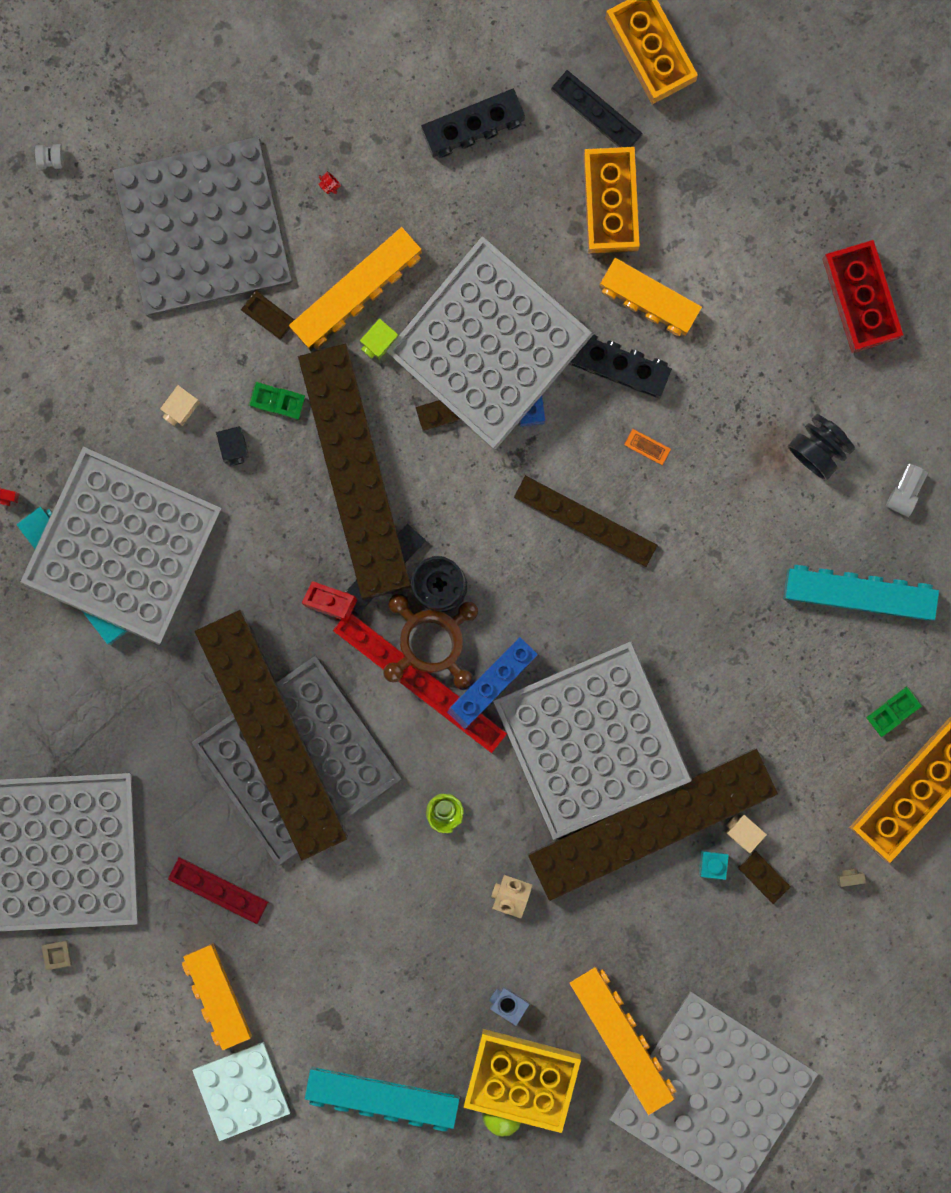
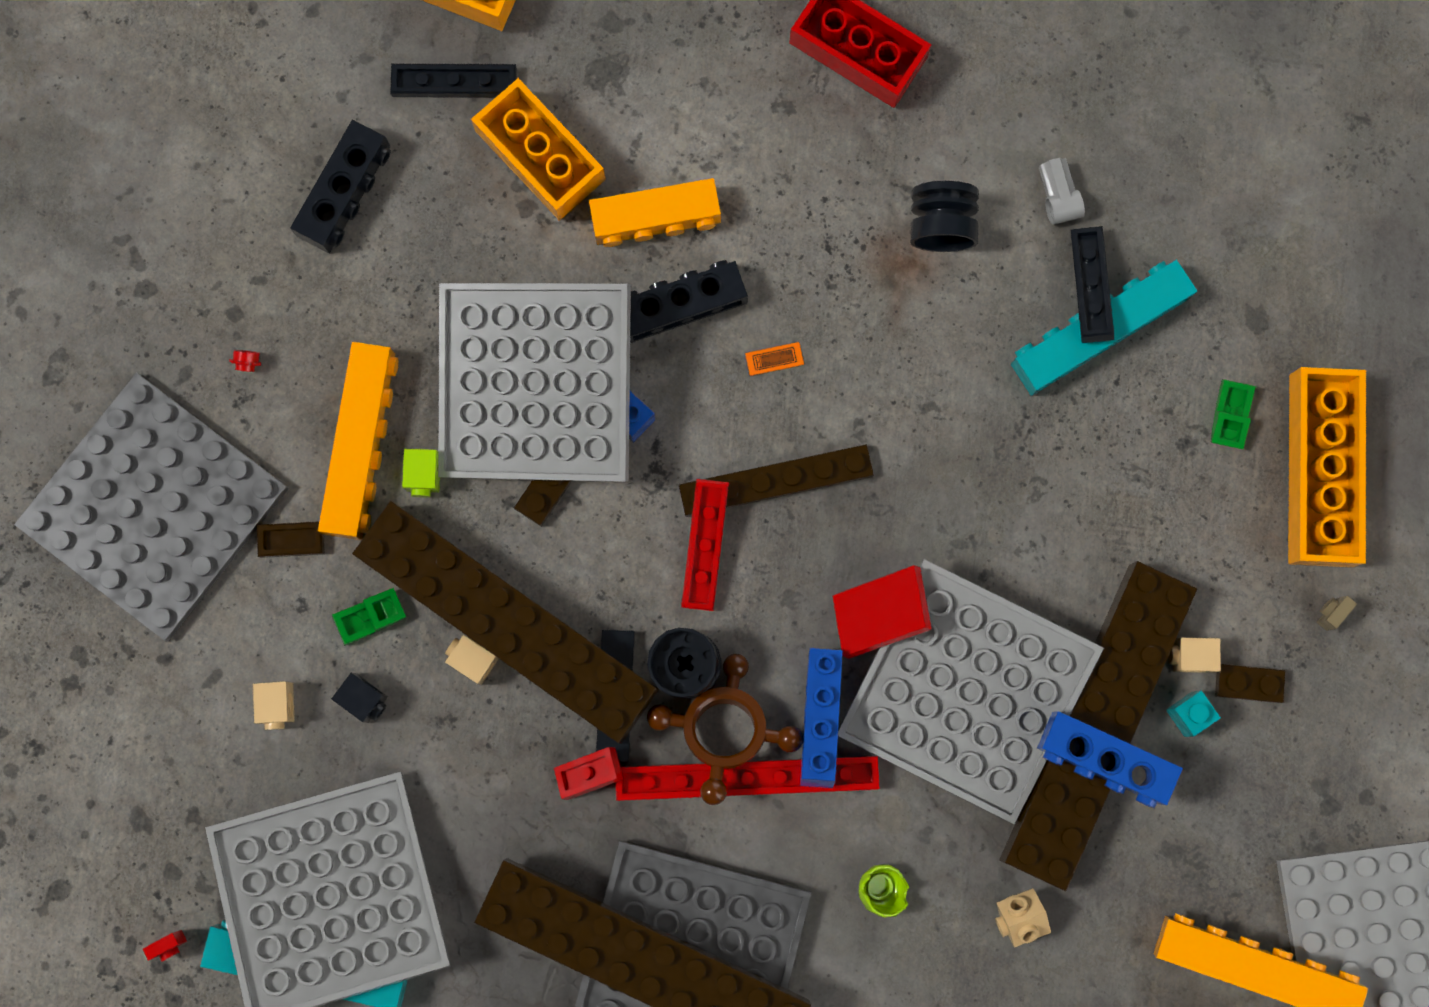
camera: 40 degrees left, 5 degrees down
(316, 476) = (470, 659): none -> tan brick
(510, 524) = (704, 544): none -> red tile
(579, 651) = (881, 612): none -> red tile
(660, 879) = (1160, 774): none -> blue brick
(875, 562) = (1092, 285): none -> black tile

